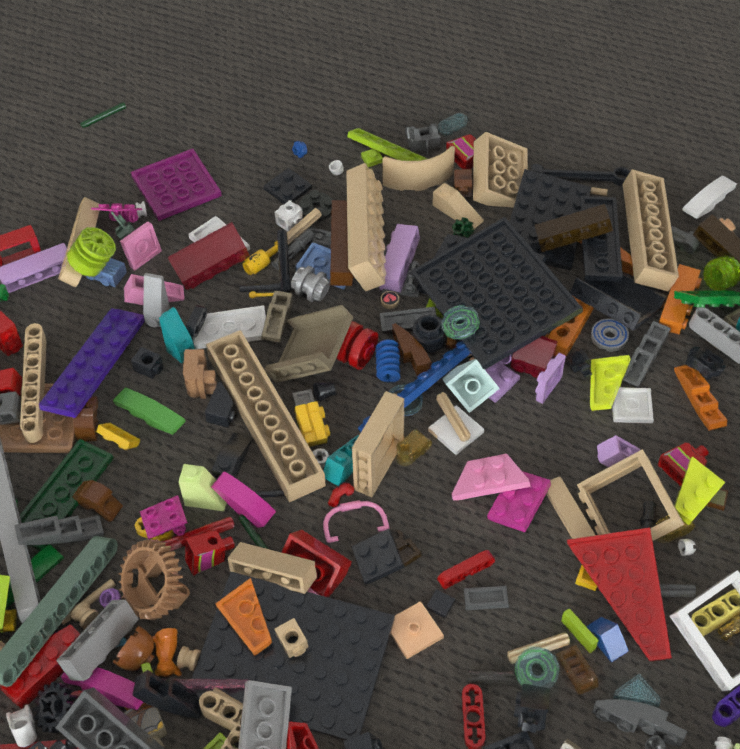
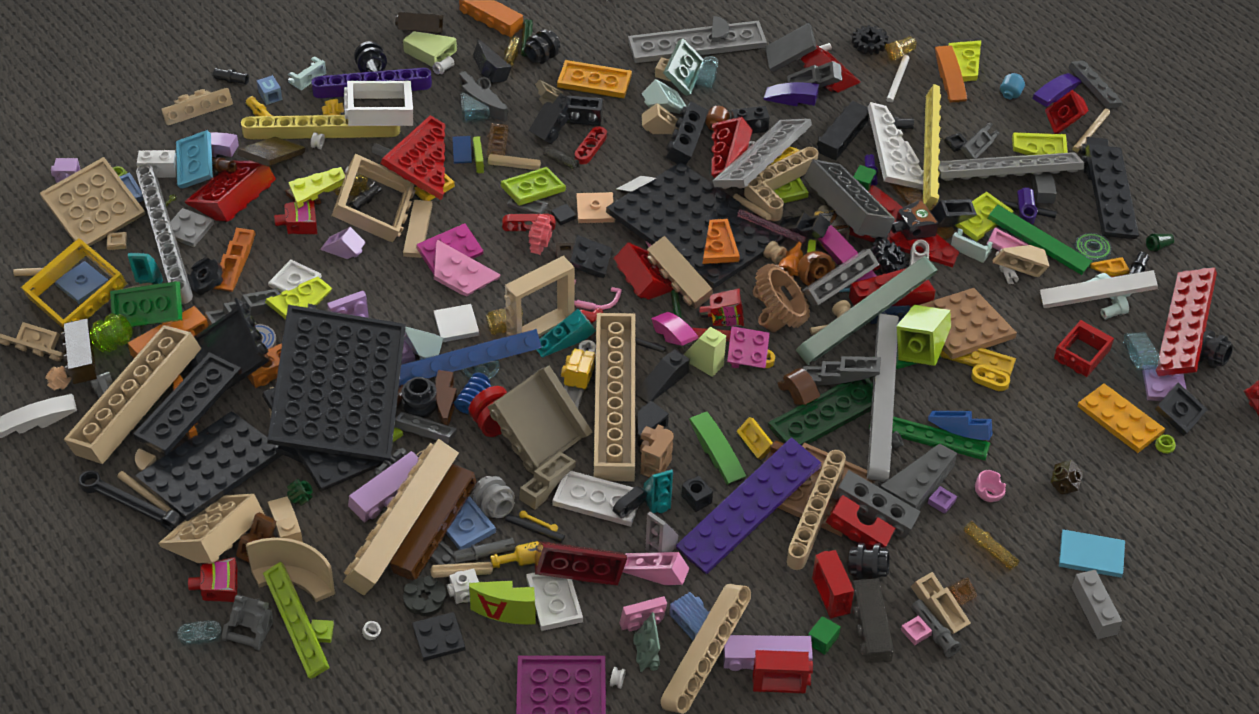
camera: 155 degrees left, 5 degrees down
(91, 251) = (704, 595): lime wheel -> none
(109, 595) = (818, 316): medium lavender plate -> none
(128, 212) = (648, 669): dark pink hinge -> none
(250, 210) = (503, 602): none -> lime slope
(283, 261) = (504, 532): black axle -> none
(288, 630) = (693, 215): tan brick -> none
(299, 149) = (394, 675): blue plate -> none
(387, 678) = (636, 183): none -> white sticker
(439, 545) = (540, 234): none -> coral gear
(453, 417) = (453, 324): tan axle -> none
(463, 330) = (389, 379): clear light blue tile -> none
(494, 620) = (533, 186): none -> lime tile
(545, 659) = (526, 148): clear light blue tile -> none
(573, 227) = (209, 409): dark brown brick -> none

